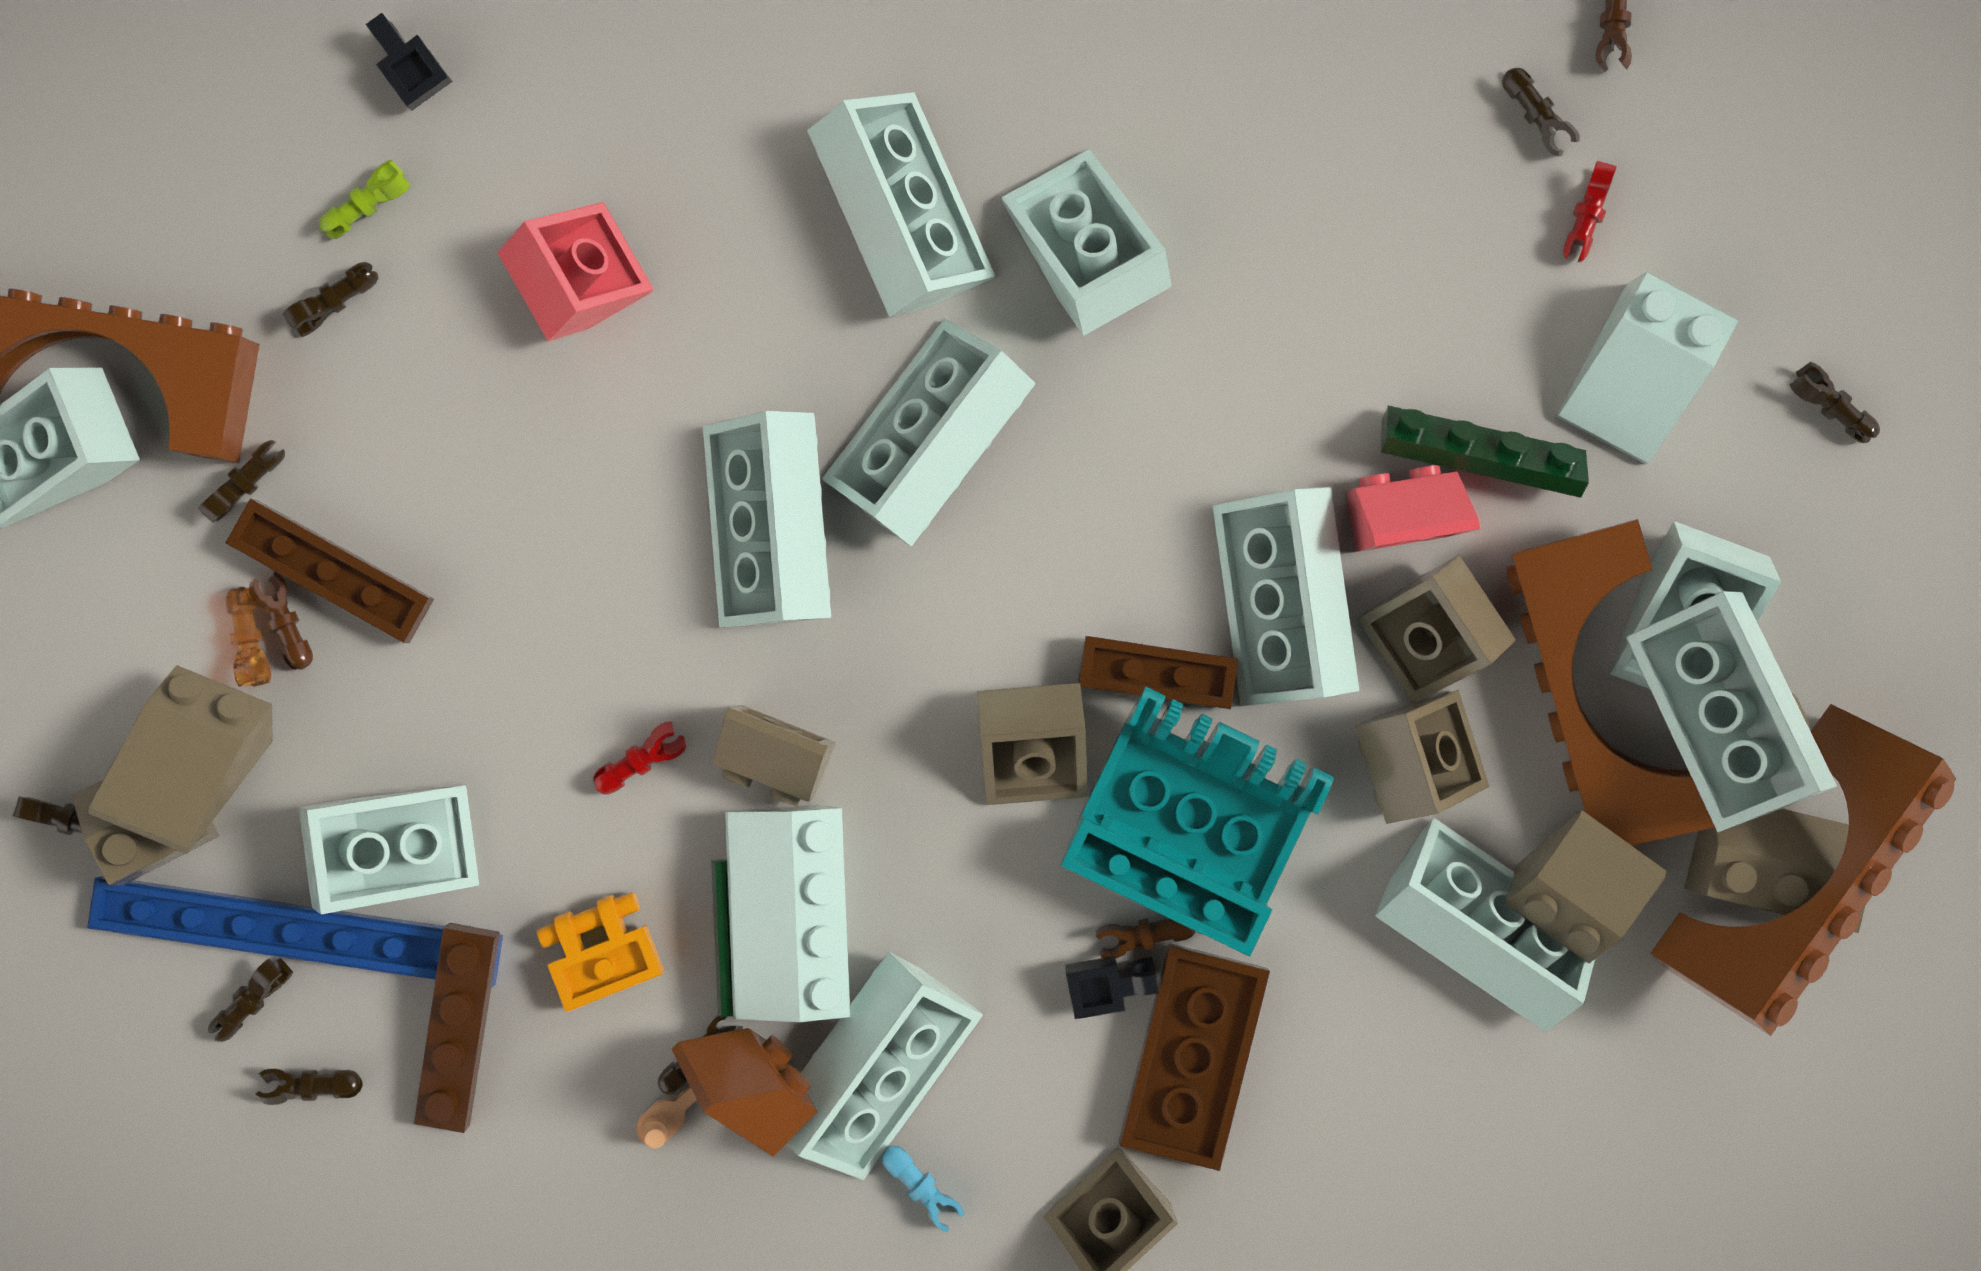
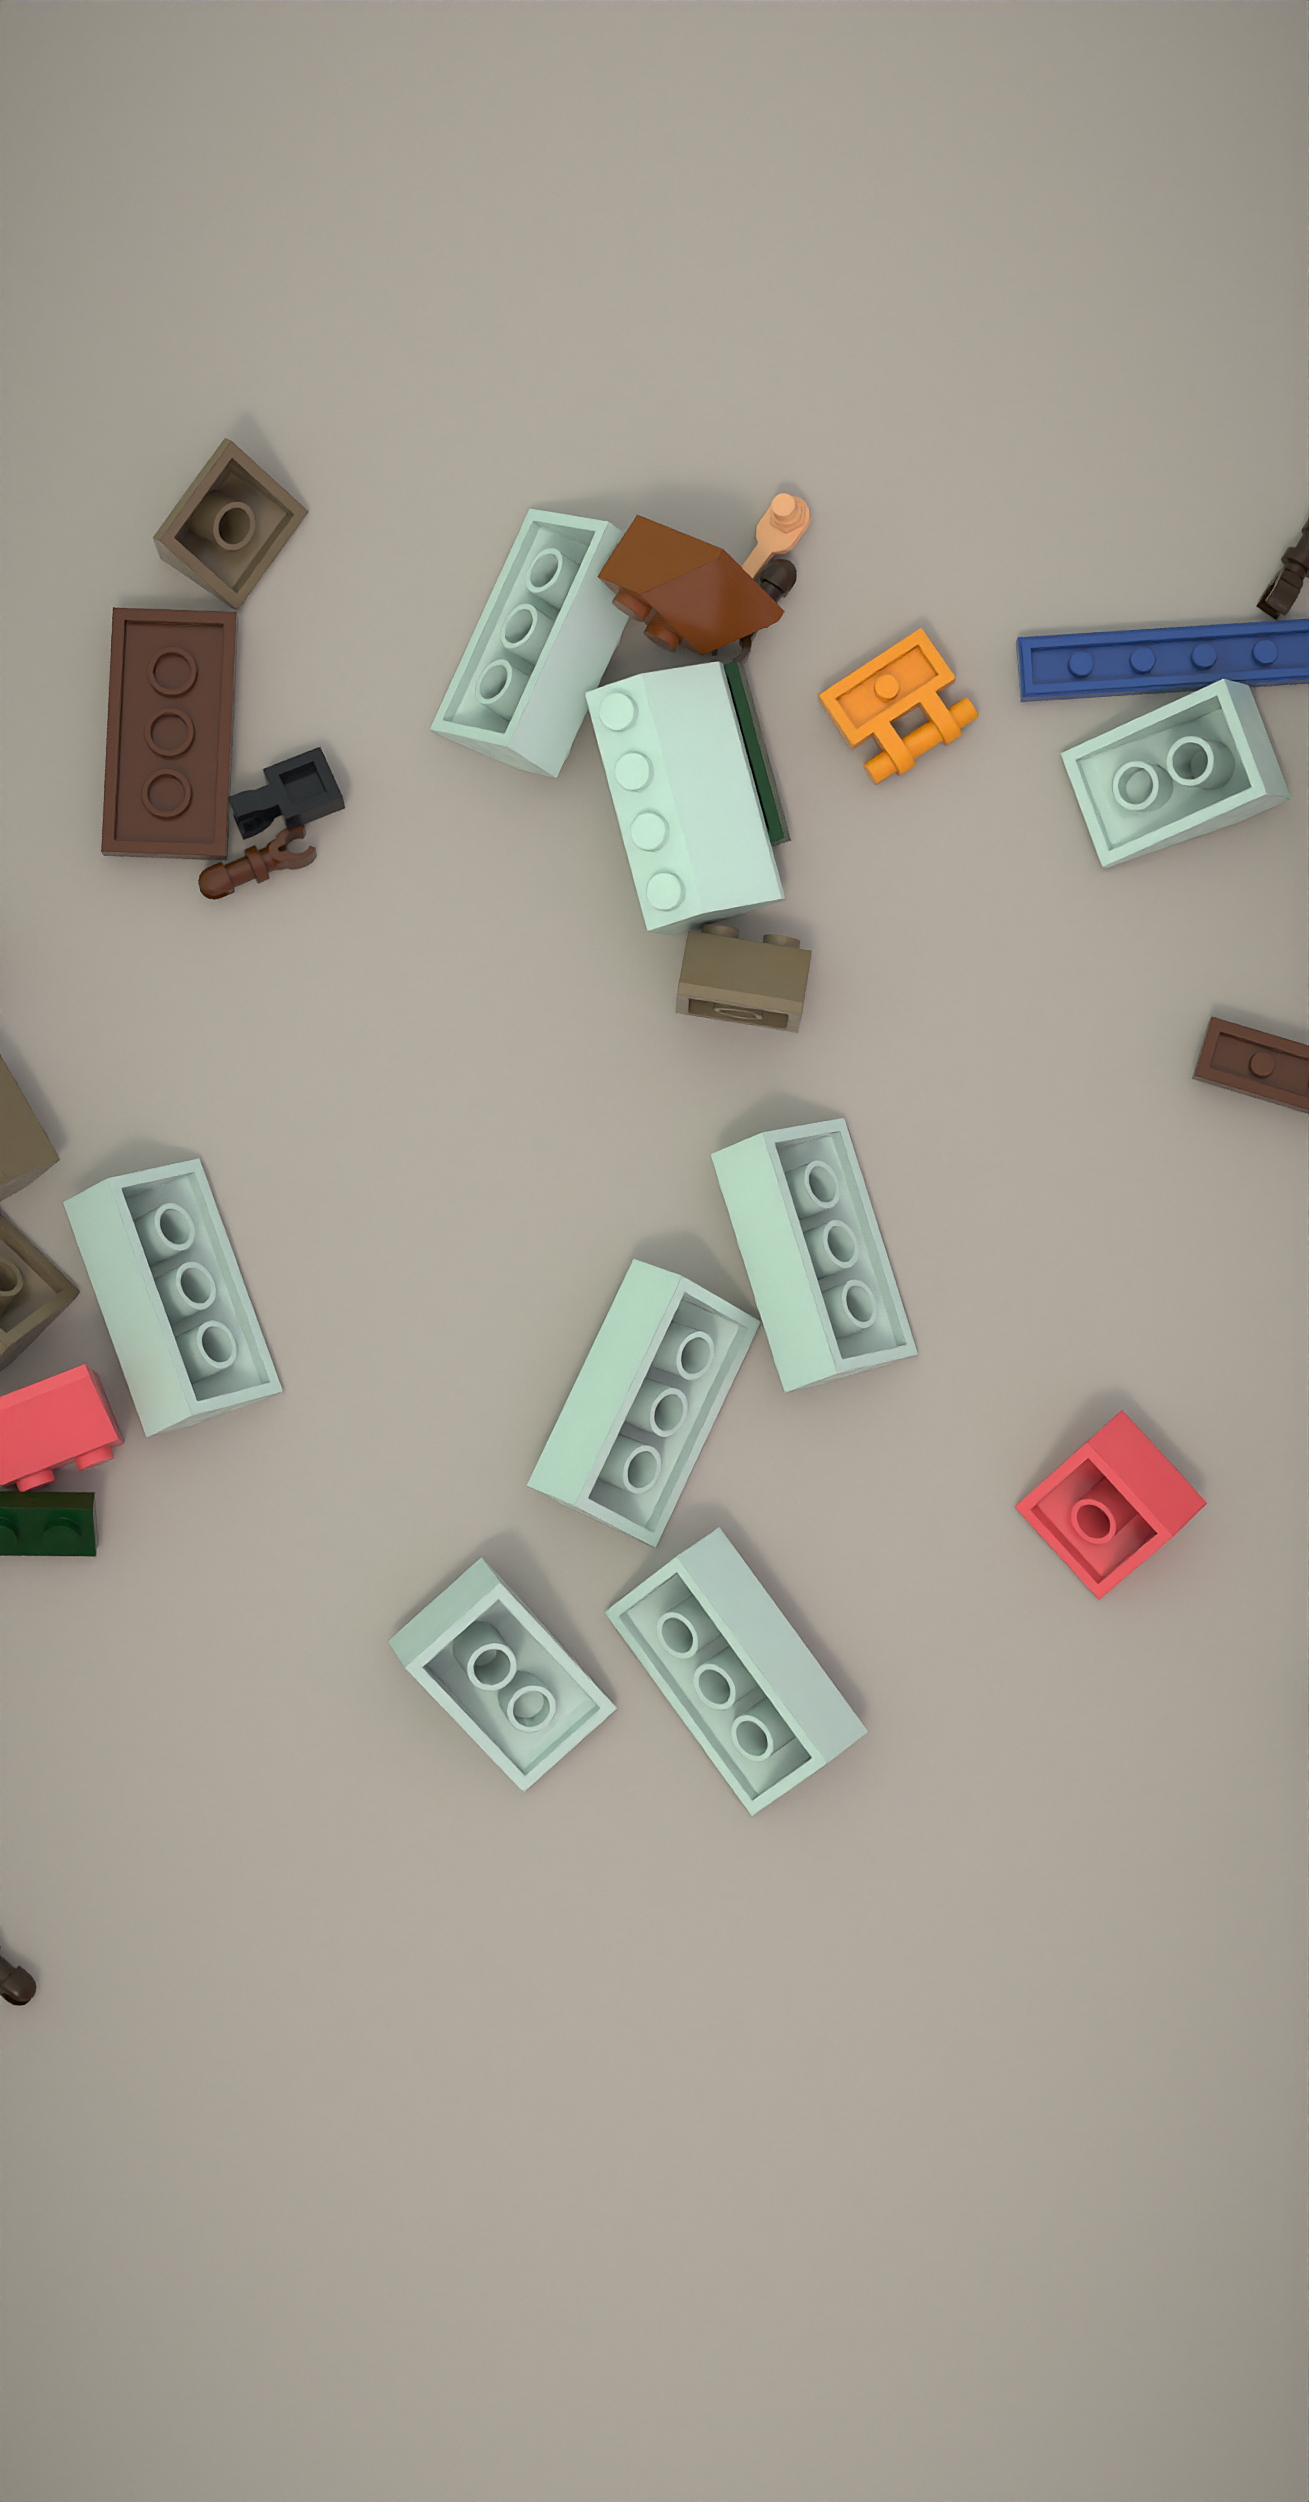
camera: 165 degrees right, 5 degrees down
(309, 1085) = (1167, 489): dark brown piece -> none
(456, 1027) = (1046, 583): reddish brown plate -> none
(612, 776) = (931, 913): red piece -> none
(920, 1185) = (461, 516): medium azure piece -> none
(1033, 743) = (438, 1058): dark tan slope -> none
(1172, 672) = (307, 1175): reddish brown plate -> none
(1193, 822) = (229, 1002): teal slope -> none

